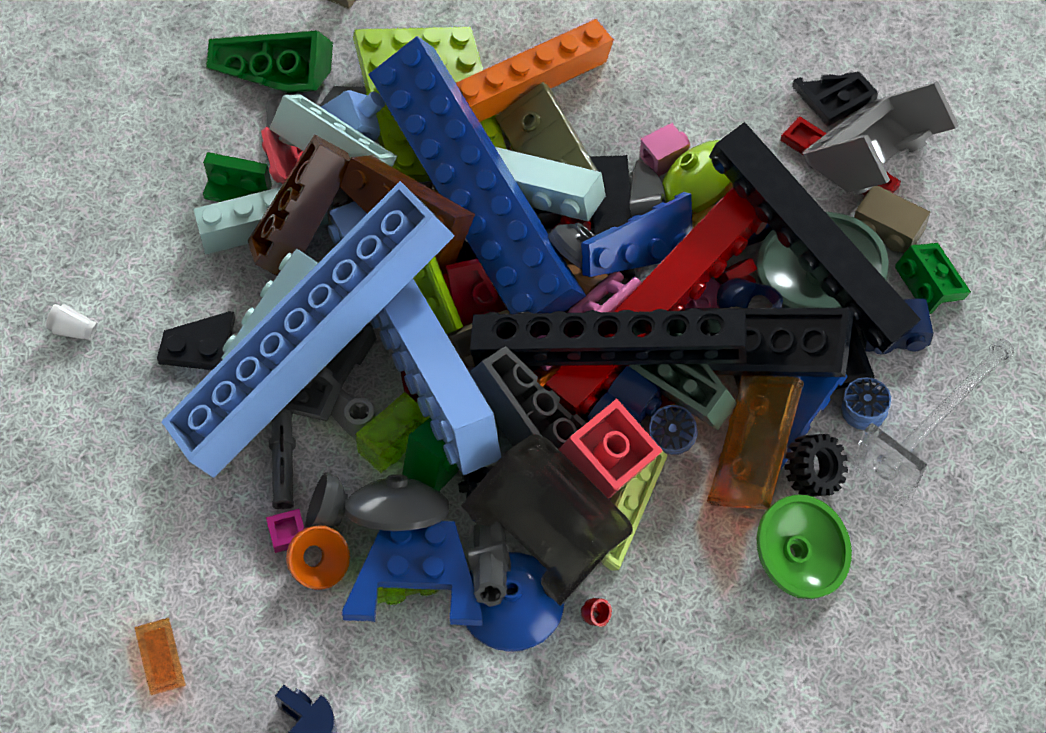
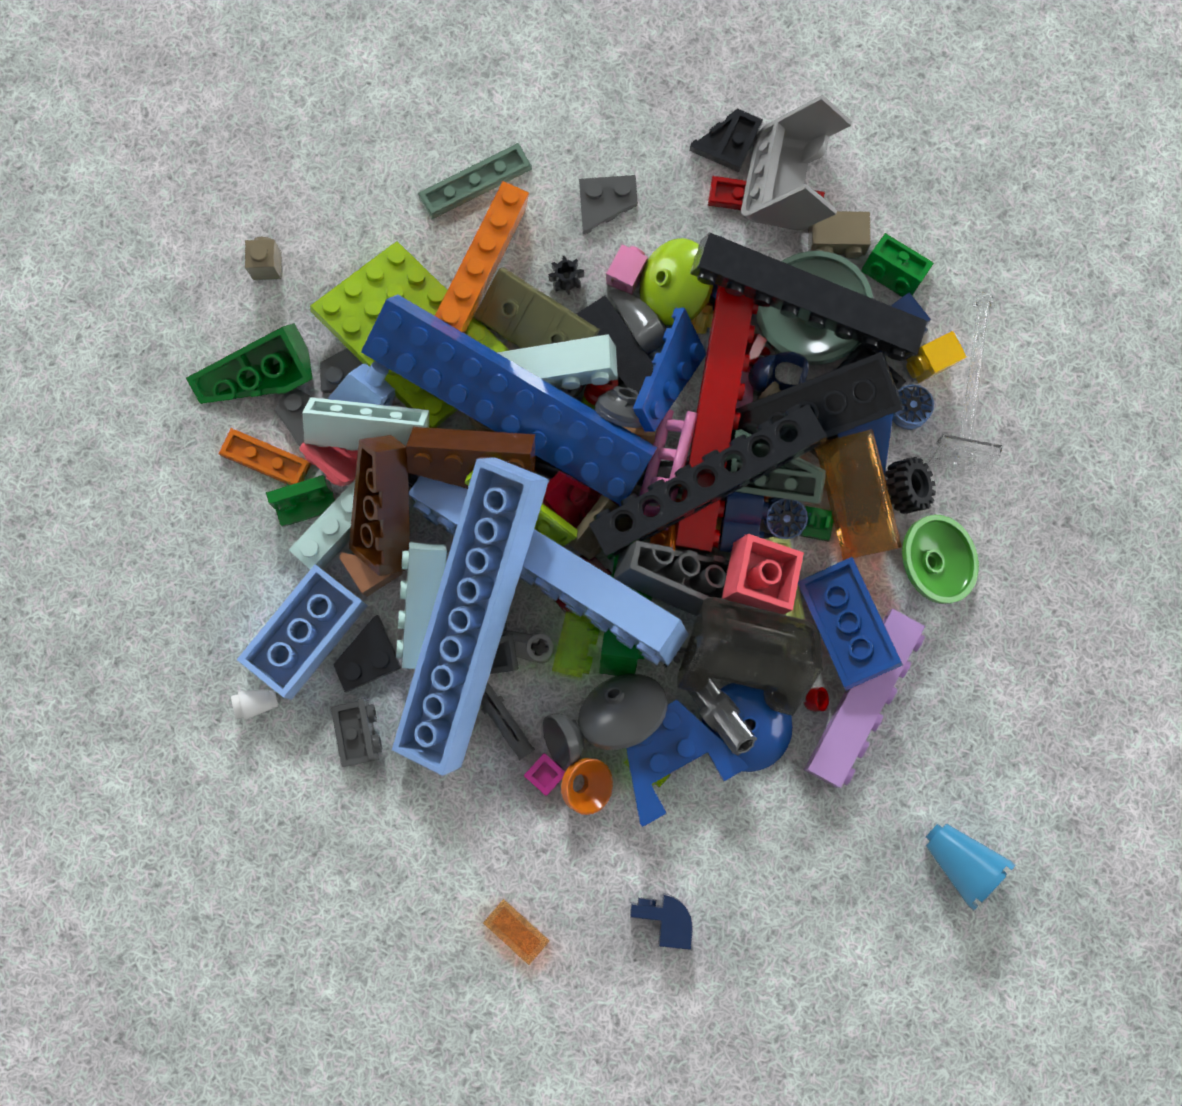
camera: 30 degrees left, 20 degrees up
(141, 397) = (356, 733): none -> dark grey bracket
(156, 285) = (302, 632): none -> light blue brick
(226, 132) = (264, 458): none -> orange tile
(246, 276) = (364, 576): none -> nougat slope
(569, 15) = (475, 180): none -> sand green tile
(604, 126) = (566, 283): none -> black gear
(643, 637) = (861, 708): none -> lavender brick
(672, 553) = (849, 623): none -> blue plate
(686, 87) = (605, 198): none -> dark grey wing
(702, 458) = (818, 524): none -> green tile
(913, 365) = (935, 357): none -> yellow brick

